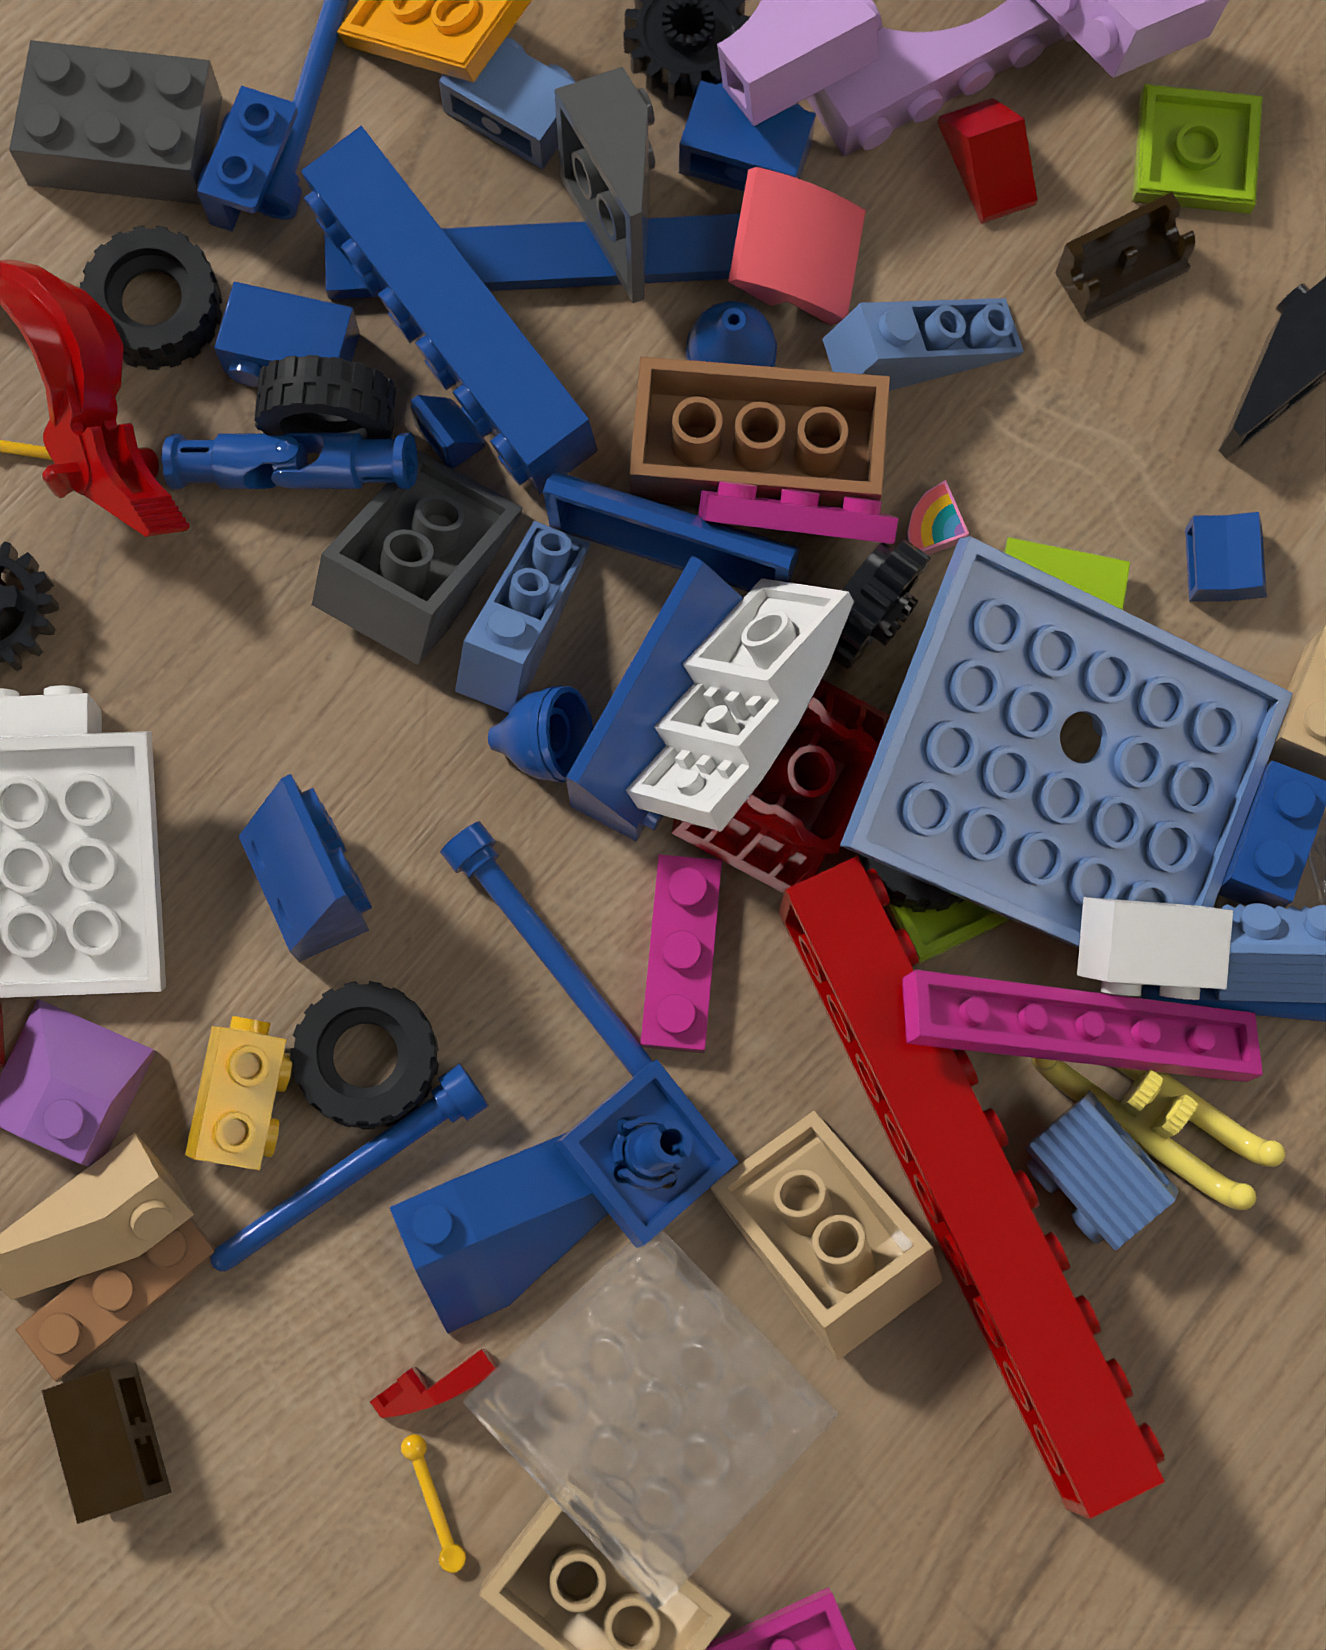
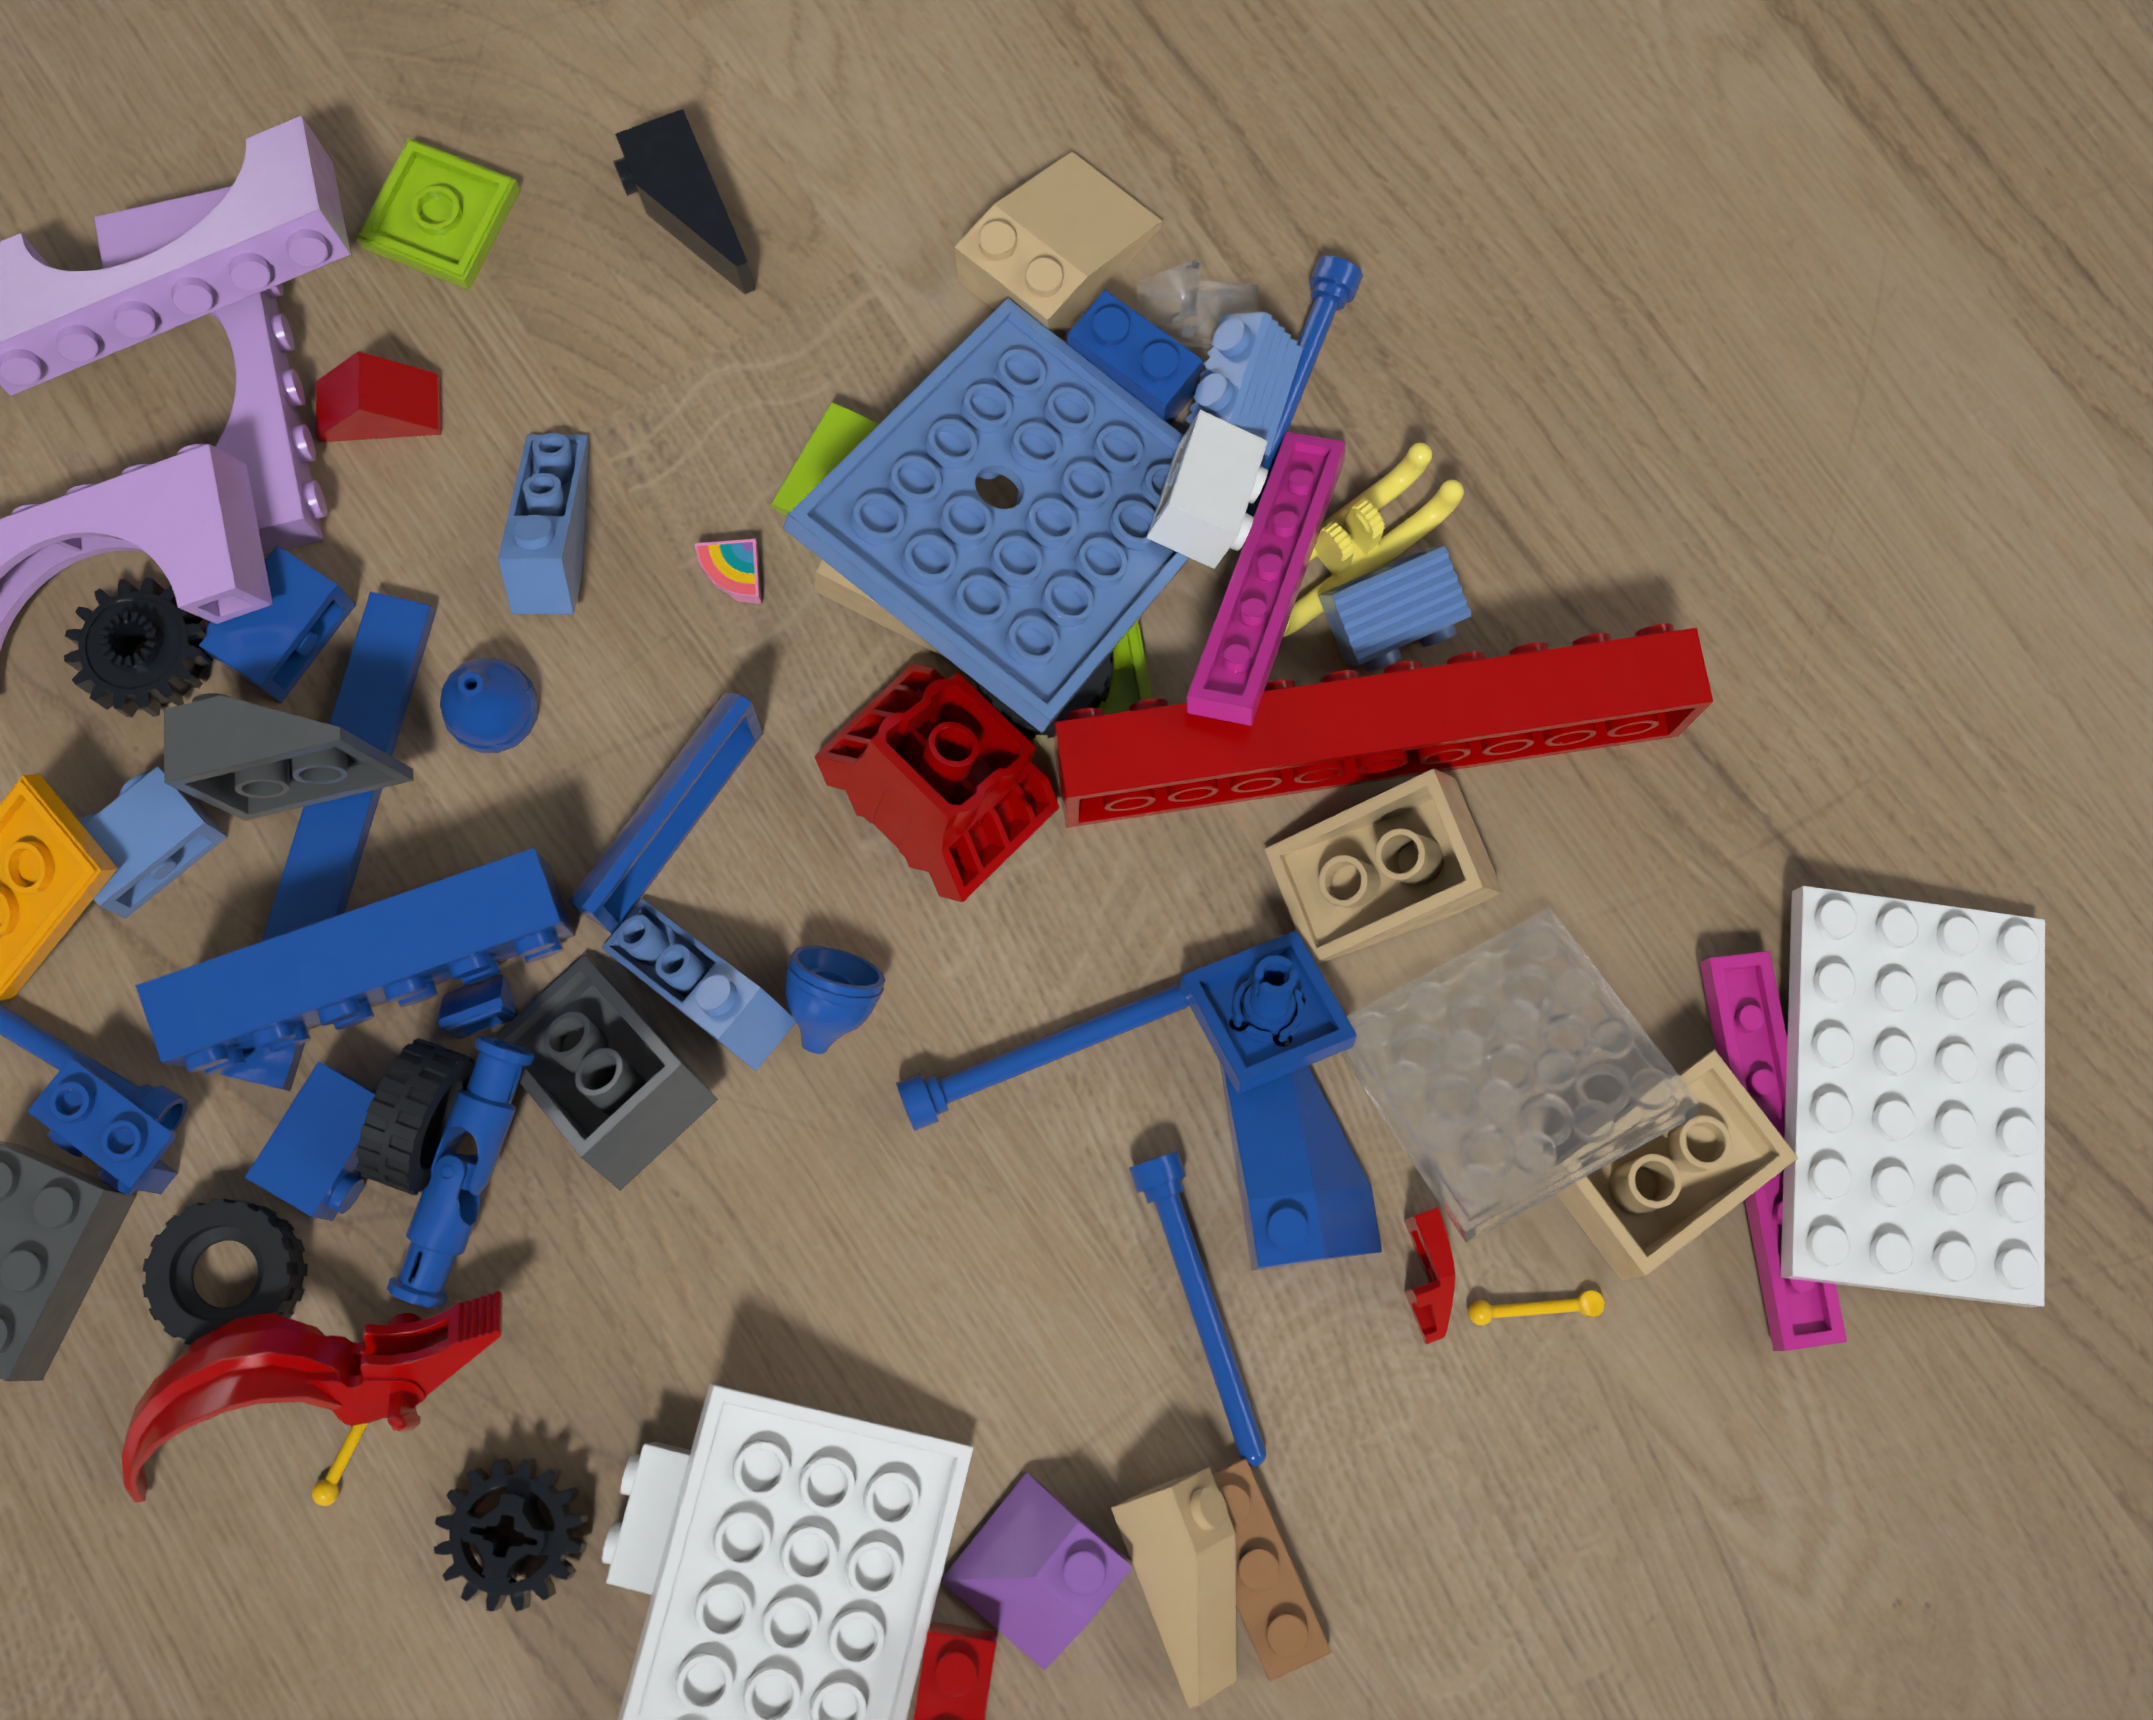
camera: 75 degrees left, 0 degrees up
(106, 1441) = (1404, 1614): dark brown hinge -> none
(238, 1095) = (1103, 1393): yellow brick -> none
(304, 871) = (900, 1266): blue slope -> none
(315, 1050) = (1144, 1244): black tyre -> none
(654, 681) = (835, 868): blue slope -> none
(681, 954) = (1080, 928): dark pink plate -> none
(744, 701) = (870, 785): white slope -> none
(756, 429) = (596, 701): medium nougat brick -> none
(797, 245) = (406, 607): coral slope -> none
(798, 512) = (692, 682): dark pink plate -> none
(880, 598) = (801, 640): black gear -> none
(1125, 258) = (529, 311): dark brown hinge -> none
(1225, 557) = (853, 319): blue piece -> none

